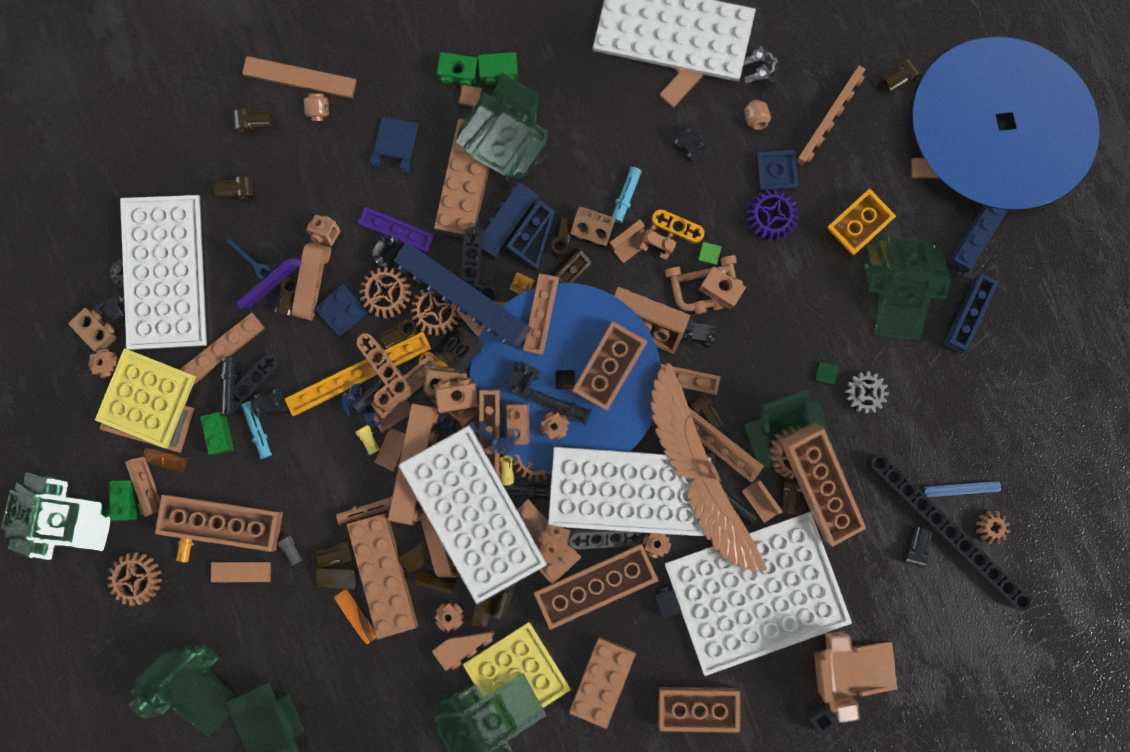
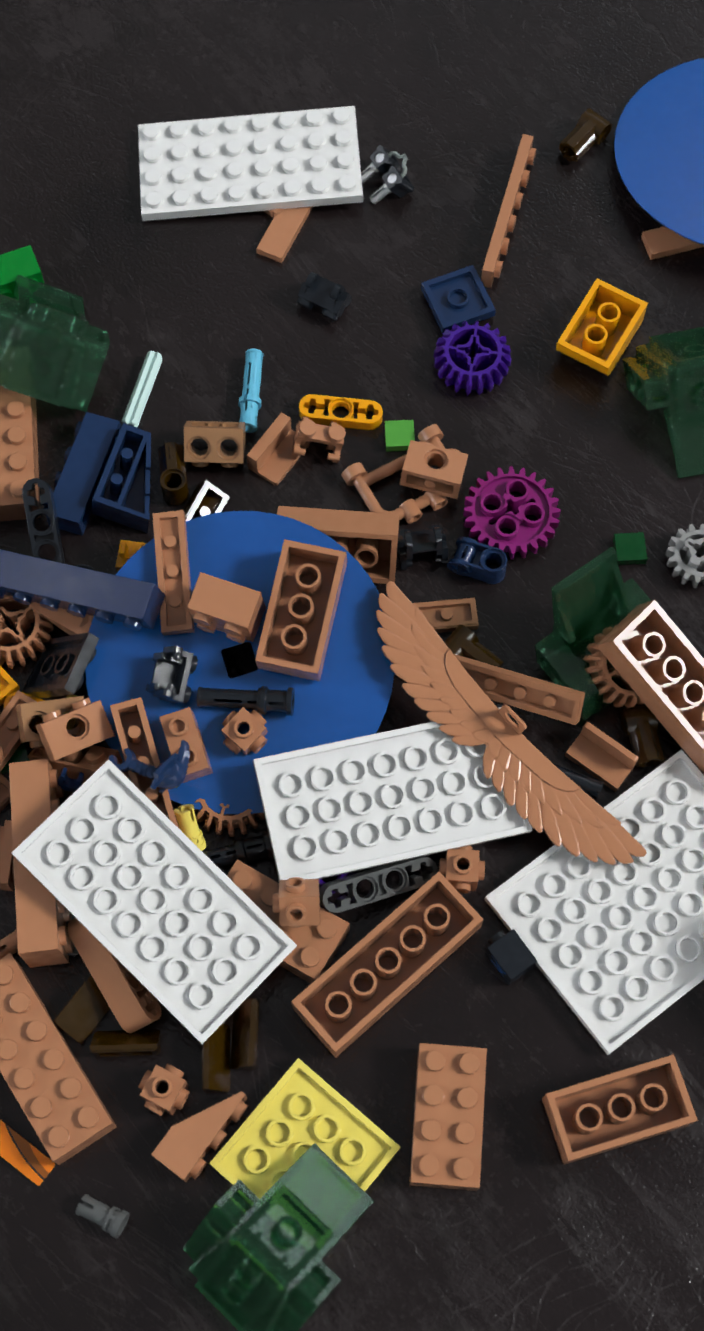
camera: 20 degrees left, 15 degrees down
(401, 677) = (110, 1219): none -> dark grey pin
(558, 173) = (142, 389): none -> light aqua axle
(565, 351) = (226, 608): none -> nougat brick
(729, 352) = (472, 561): none -> dark blue piece
(757, 114) = (404, 235): nougat head -> none
(765, 344) = (496, 492): none -> magenta gear

